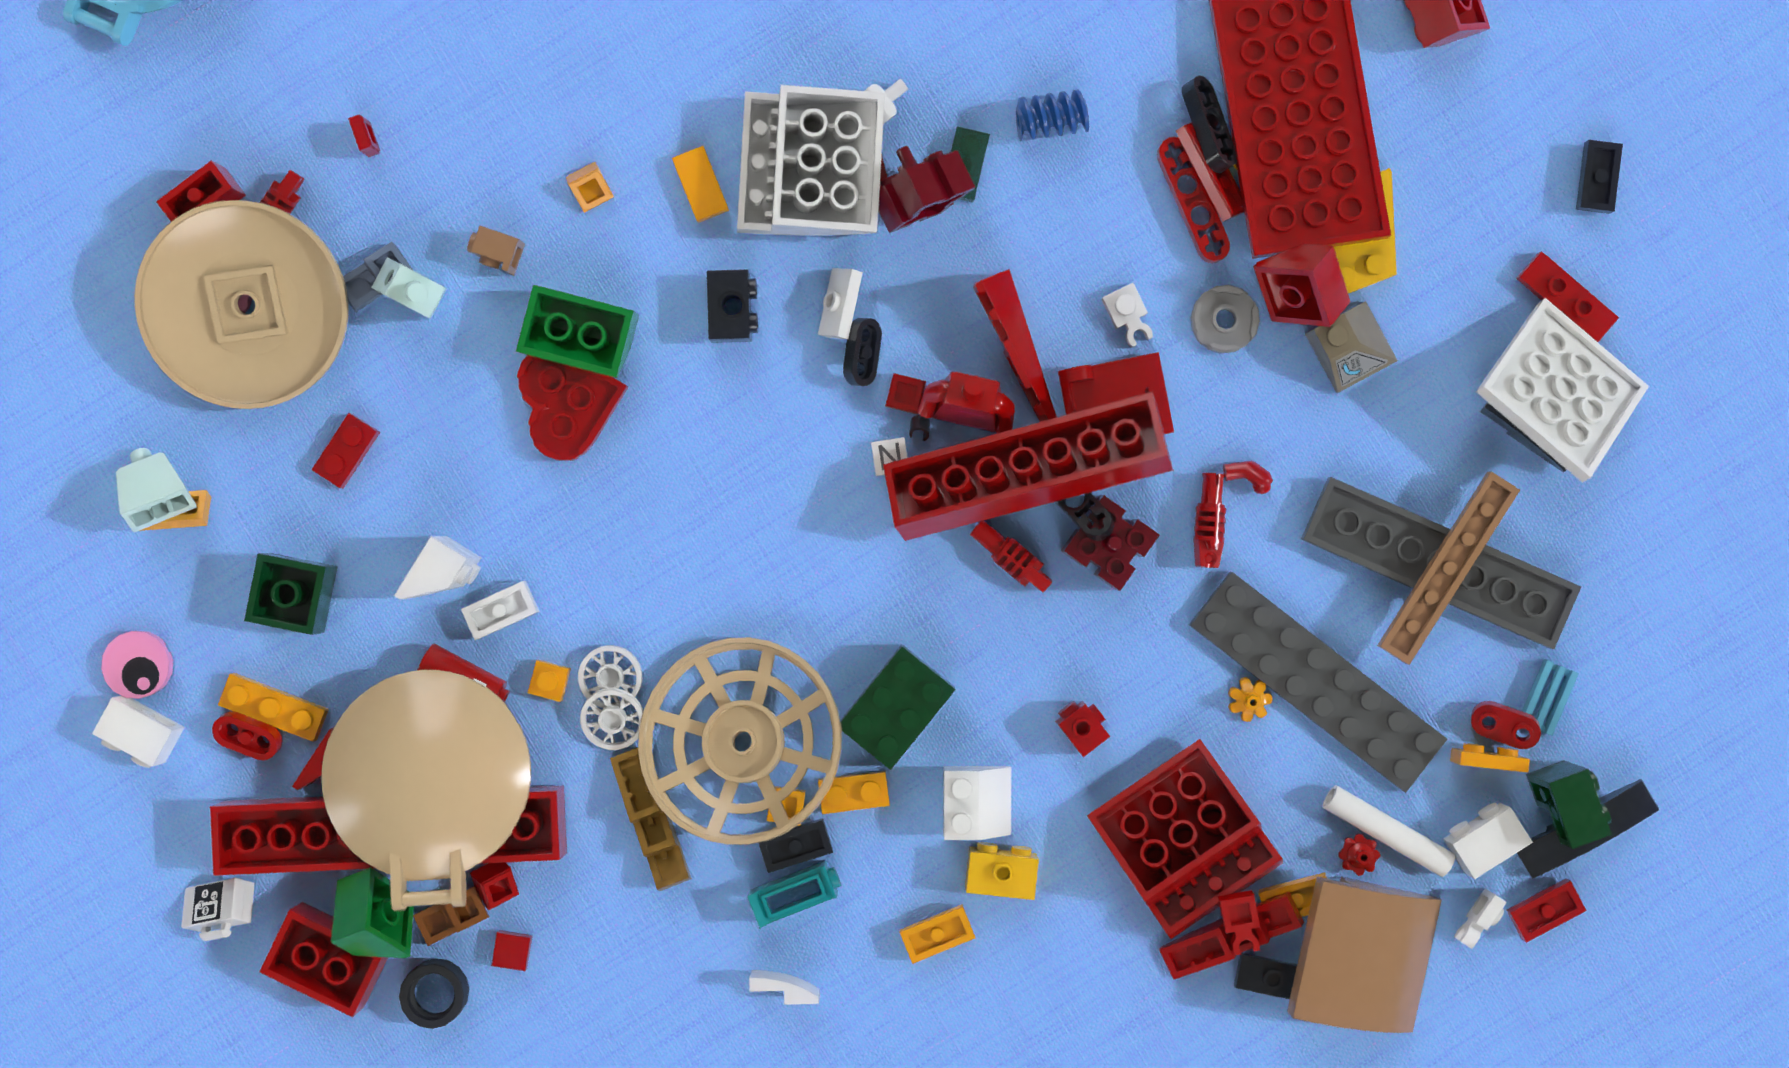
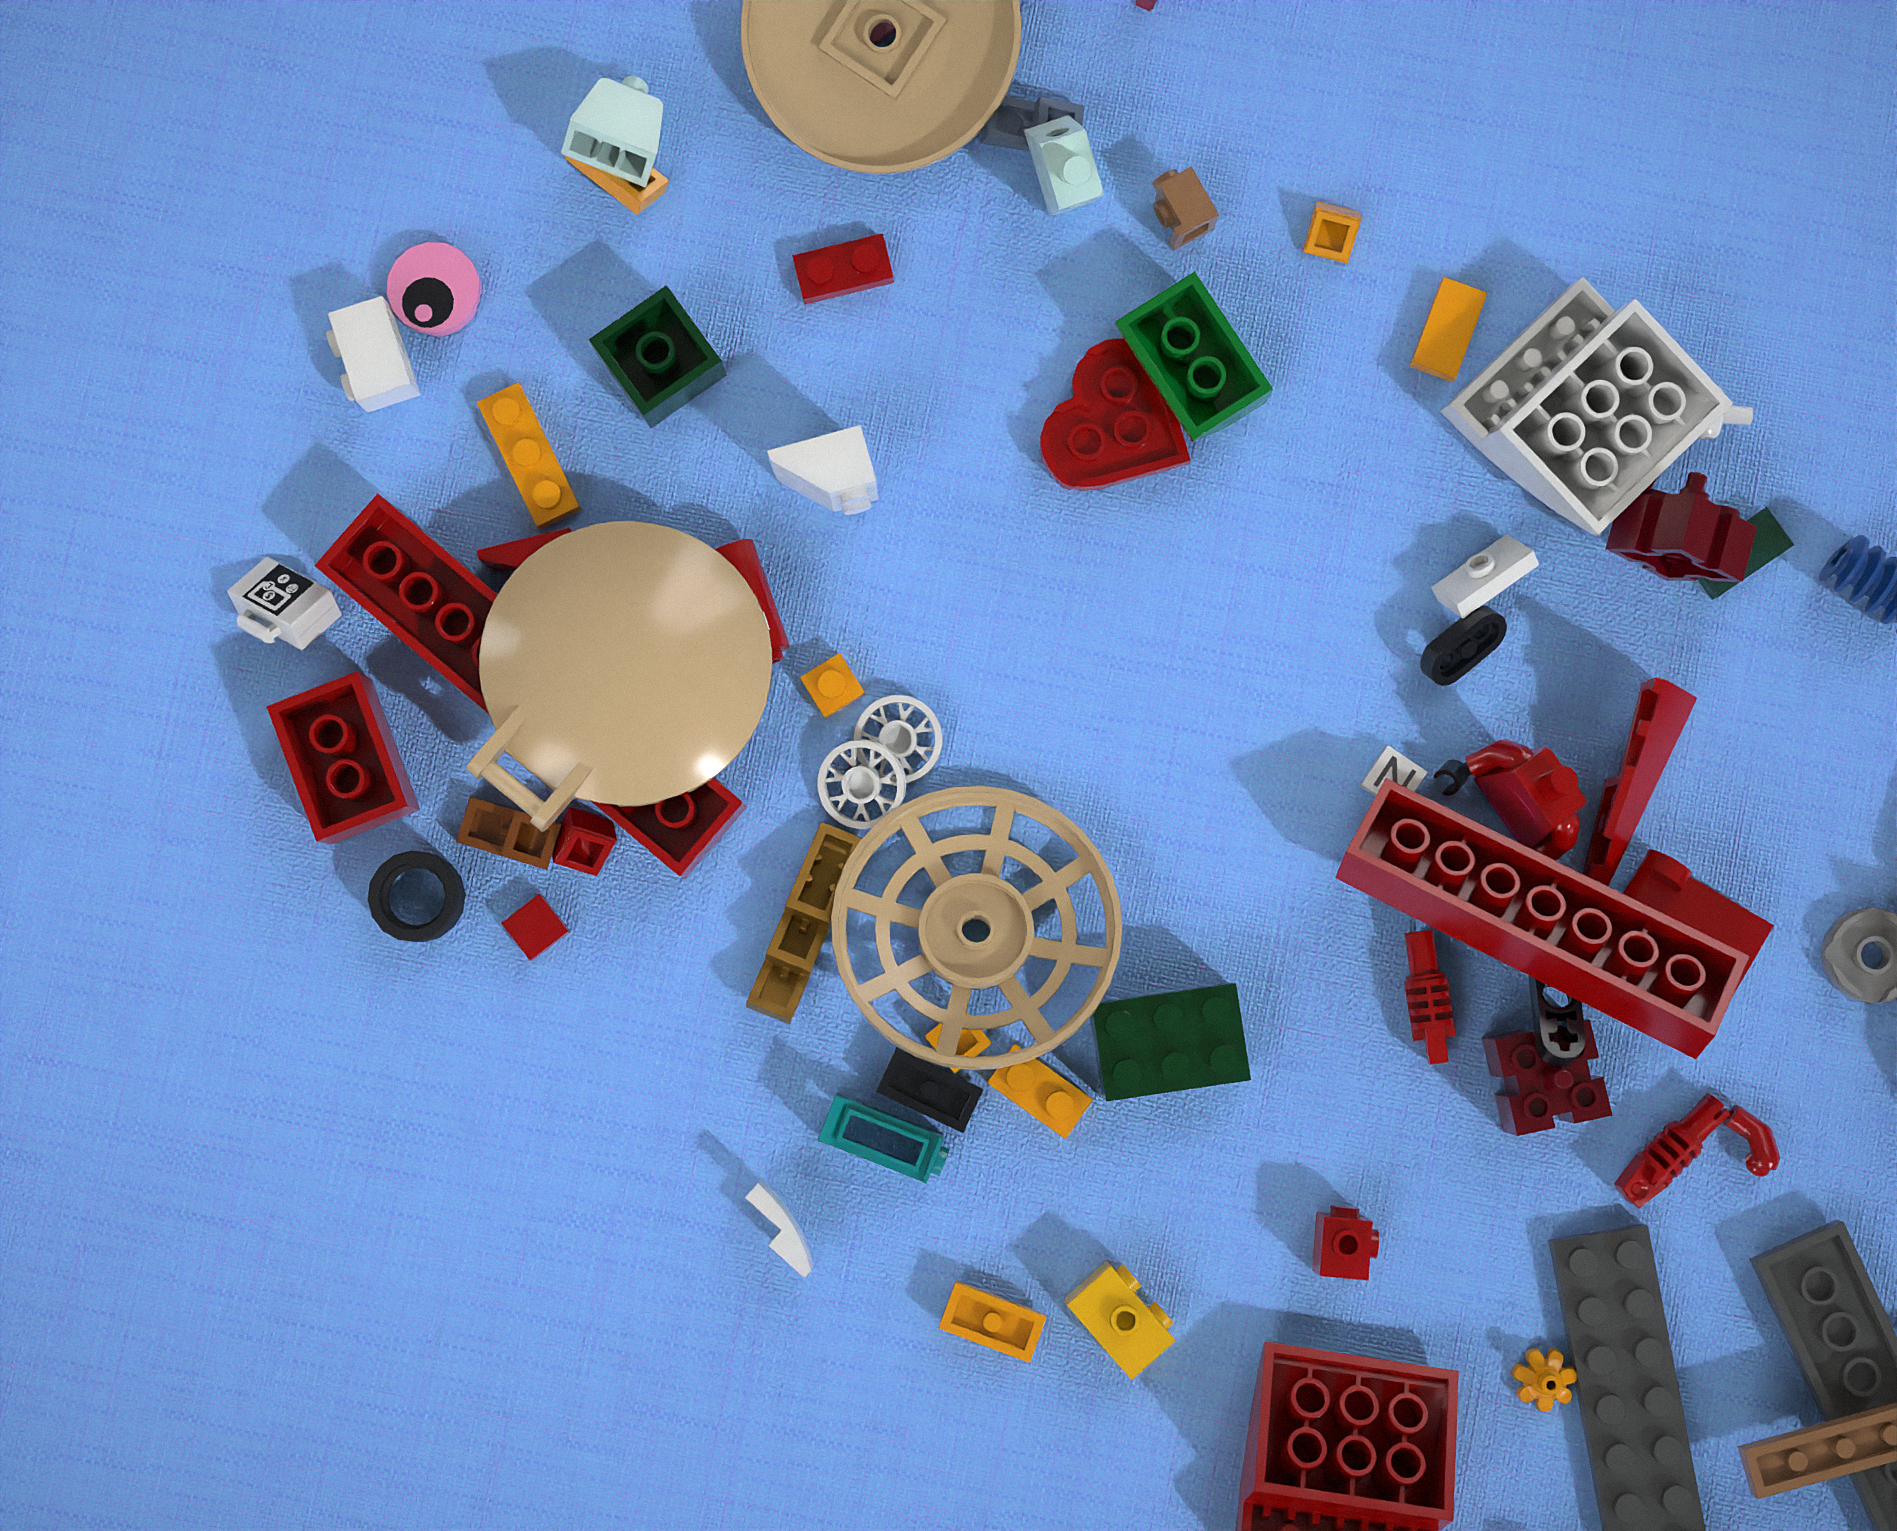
camera: 40 degrees right, 5 degrees down
(249, 737) = (478, 462): red plate -> none
(365, 918) = (427, 756): green slope -> none
(500, 610) = (850, 568): white plate -> none
(721, 287) = (1383, 452): black brick -> none
(905, 393) = (1467, 729): red tile -> none
(976, 802) = (1159, 1219): white slope -> none
(1125, 309) = (1776, 851): white plate -> none

